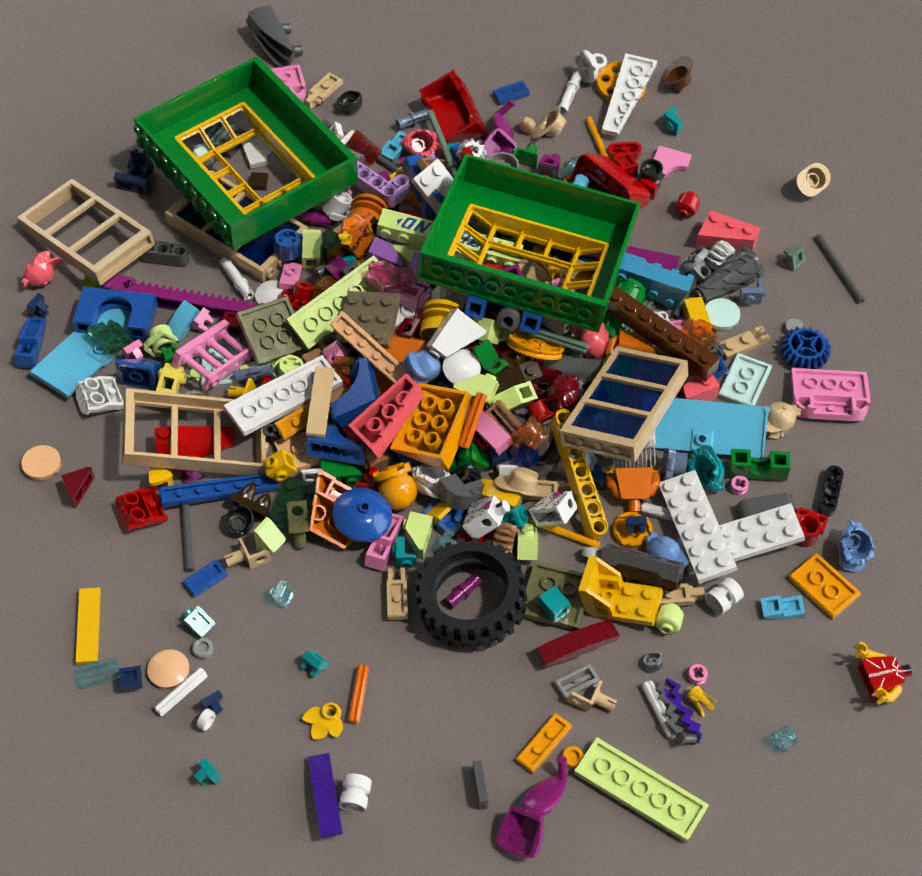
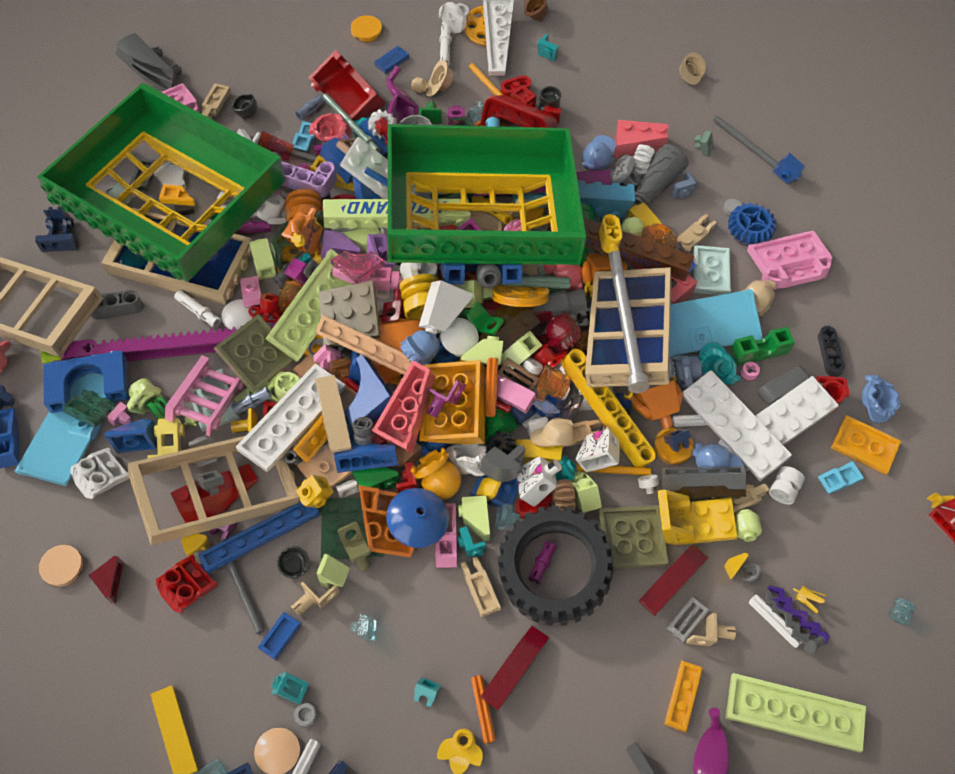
camera: 20 degrees left, 5 degrees up
(182, 319) = (158, 366): medium azure slope -> none
(191, 427) = (210, 481): none -> dark grey tile
(198, 322) = (175, 361): bright pink tile -> none
(216, 131) = (124, 168): sand green tile -> none
(230, 316) = (208, 351): dark red tile -> none
(246, 495) = (290, 536): dark brown tile -> none
(248, 167) = (175, 195): none -> light orange tile
(287, 244) = (238, 260): blue piece -> none
(340, 424) = (363, 431): none -> dark grey wheel
(400, 667) = (514, 668): none -> dark red slope
(419, 416) = (440, 399): none -> magenta bracket
(498, 55) = (366, 28): none -> light orange tile
(521, 414) = (533, 366): none -> white tile
(554, 604) = (638, 548): teal panel -> none
(574, 756) = (717, 699): light orange tile -> none
(601, 447) = (610, 239): none -> flat silver piece
(642, 647) = (734, 563): none -> yellow slope
(672, 160) = (563, 82): bright pink tile -> none
(677, 317) = (632, 226): none -> yellowish green head
(678, 238) = (599, 153): none -> medium blue hair
(687, 204) = (593, 120): red head -> none
(697, 668) = (789, 574): bright pink bush -> none
(723, 314) = (666, 211): light aqua tile -> none
(869, 305) = (789, 168): none -> blue brick

